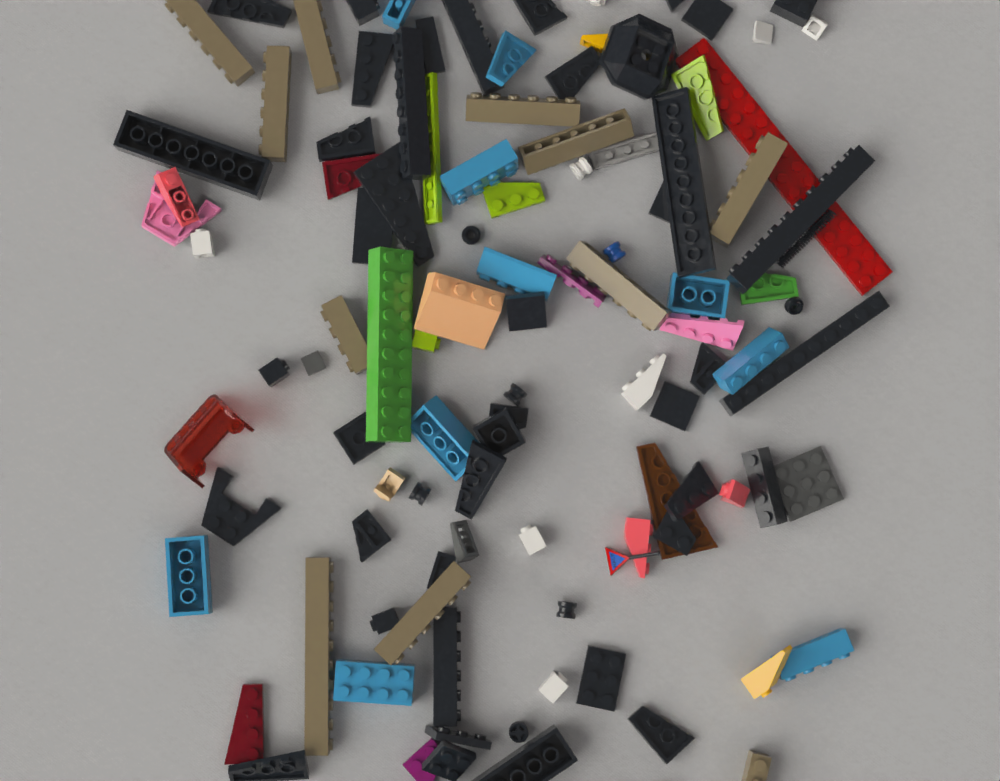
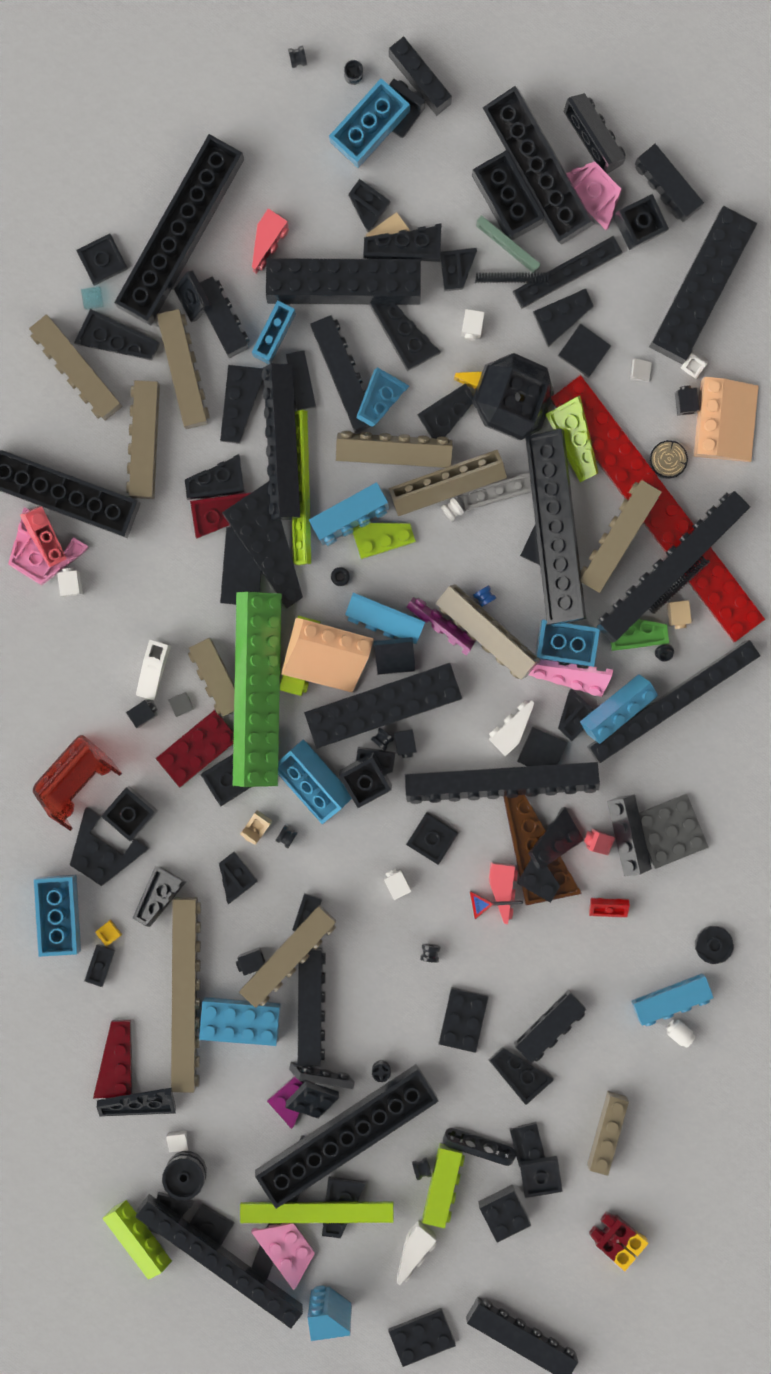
camera: 10 degrees right, 5 degrees up
(231, 627) = (99, 965): none -> black plate
(240, 594) = (108, 933): none -> yellow tile
(261, 471) = (129, 813): none -> black brick
(285, 327) = (152, 669): none -> white slope
(290, 554) = (157, 895): none -> wing
(329, 407) = (196, 748): none -> dark red plate
(462, 552) = (327, 895): dark grey slope -> none
(479, 475) = (345, 821): black wing -> none
(515, 360) = (383, 705): none -> black brick
(538, 398) = (405, 743): none -> black brick
(554, 686) = (416, 1028): white brick -> none
(566, 494) = (432, 838): none -> black tile
(636, 435) = (502, 782): none -> black brick
(689, 683) = (550, 1026): none -> black brick
(745, 561) = (609, 907): none -> red plate
(766, 675) = (626, 1020): yellow slope -> none
(792, 118) = (668, 459): none -> dark tan tile
(807, 267) = (679, 614): none -> tan brick
(808, 61) = (686, 400): none -> black brick
(821, 688) = (680, 1033): none -> white brick
(847, 79) = (725, 419): none -> light nougat slope
(852, 598) = (714, 945): none -> black tile

